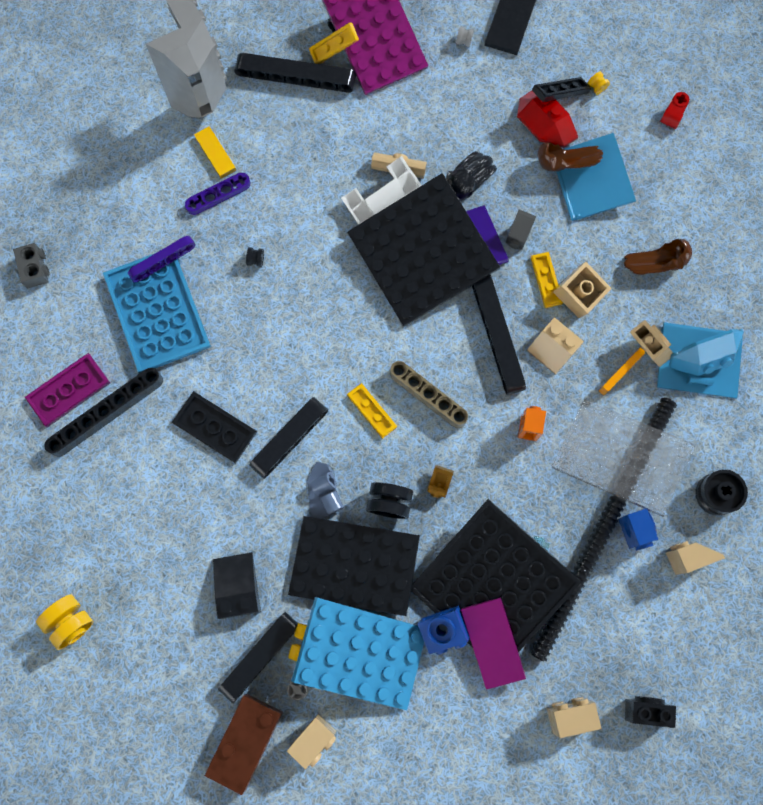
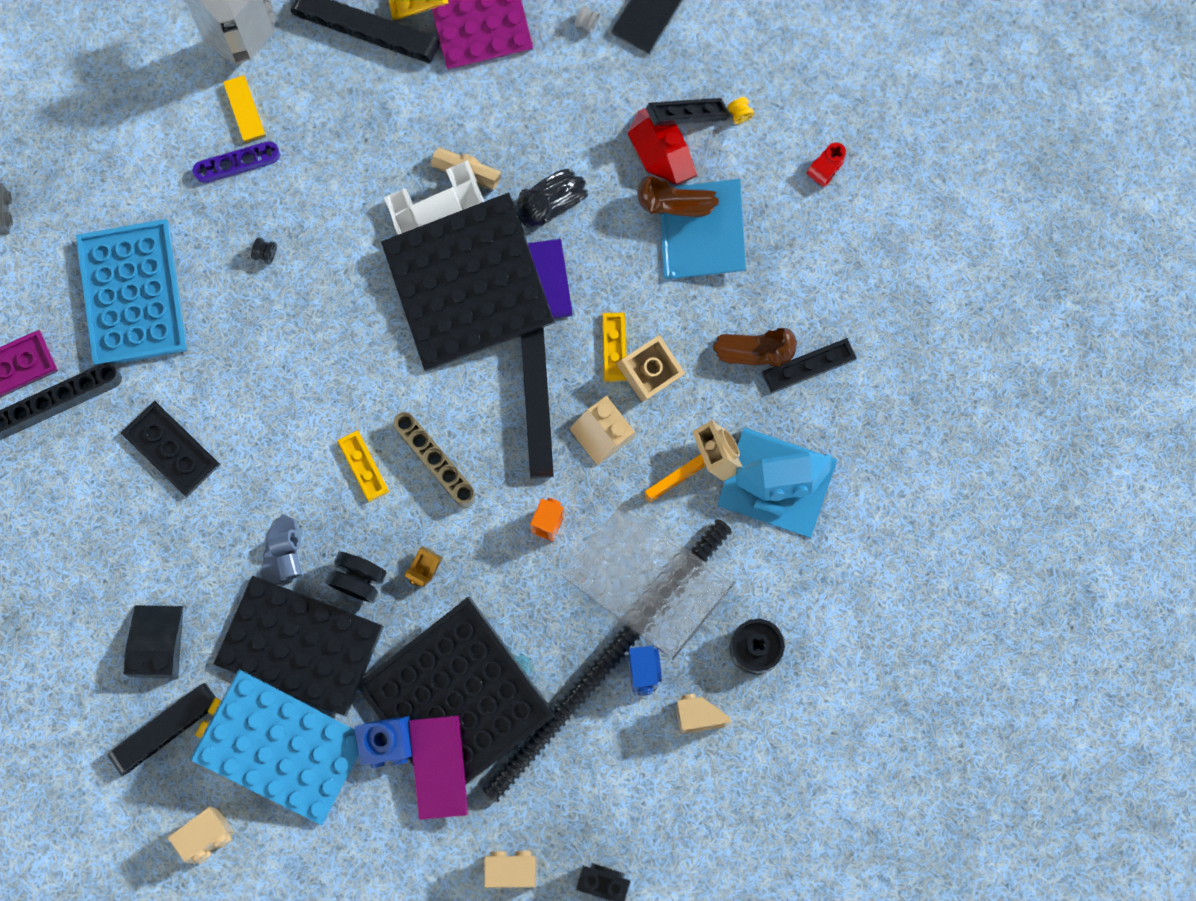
camera: 10 degrees right, 0 degrees up
(161, 259) = (149, 232): dark purple beam -> none
(243, 744) = (124, 823): copper brick -> none
(288, 437) = (255, 478): black beam -> none
(295, 692) = (196, 777): light grey wheel -> none
(520, 229) = (593, 280): dark grey slope -> none
(700, 265) = (809, 365): none -> black tile

